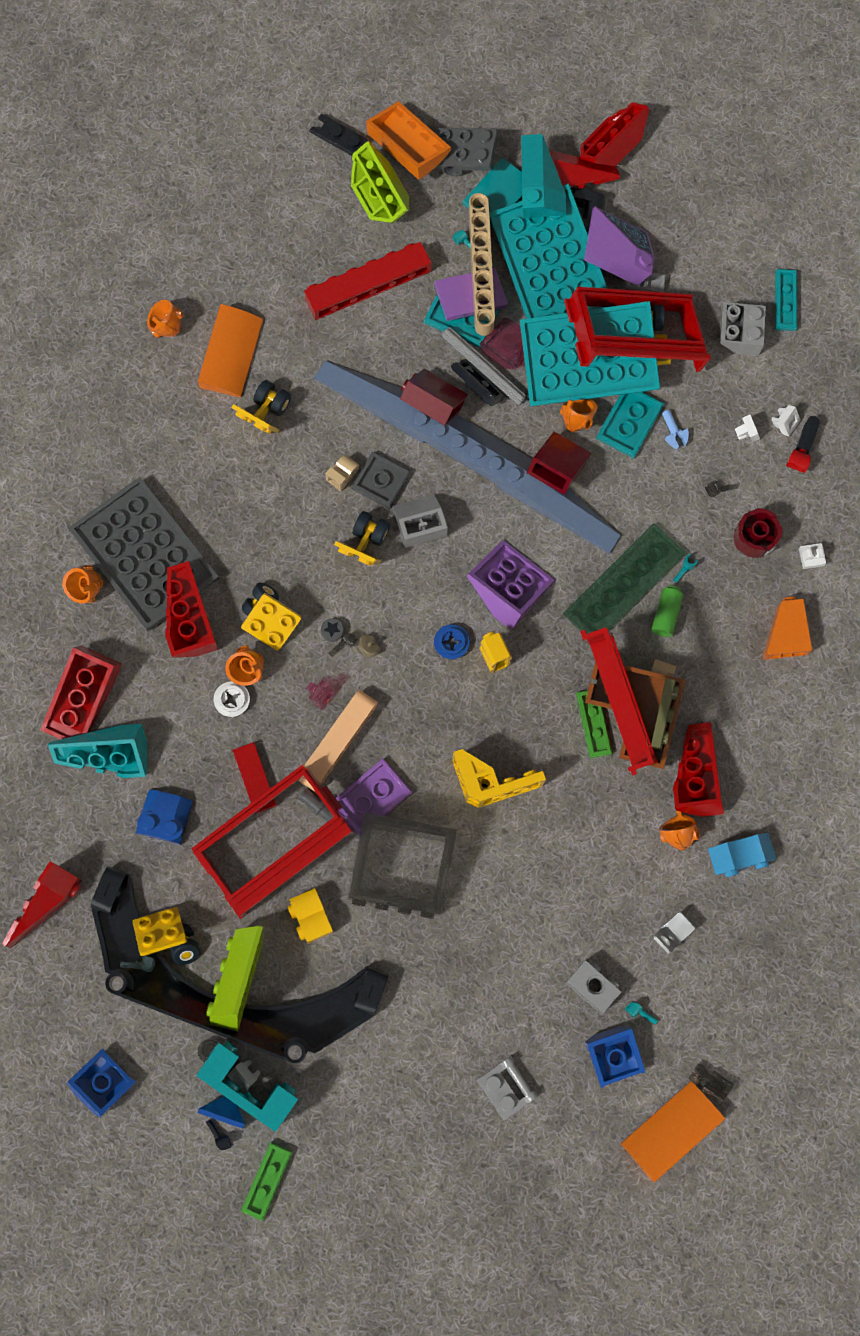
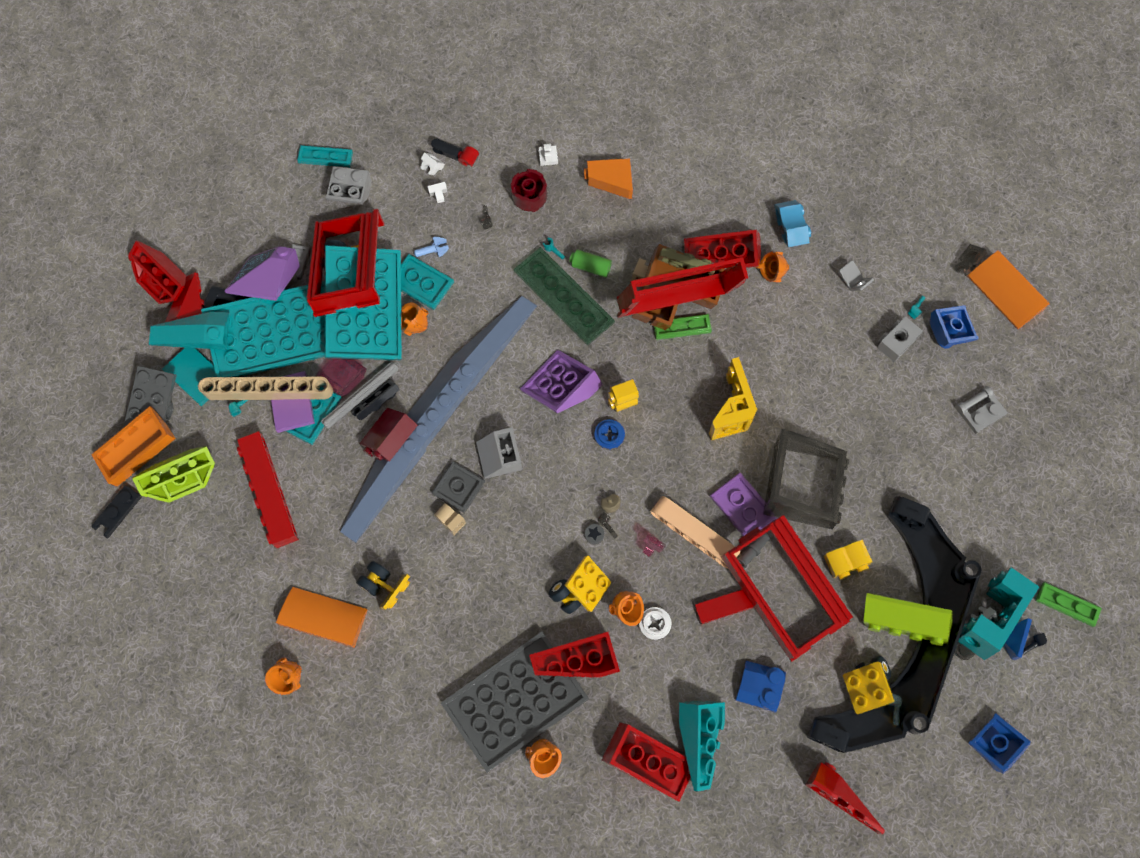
camera: 80 degrees left, 5 degrees down
(364, 529) = (508, 494): plate -> none
(558, 462) = (458, 335): dark red brick -> none

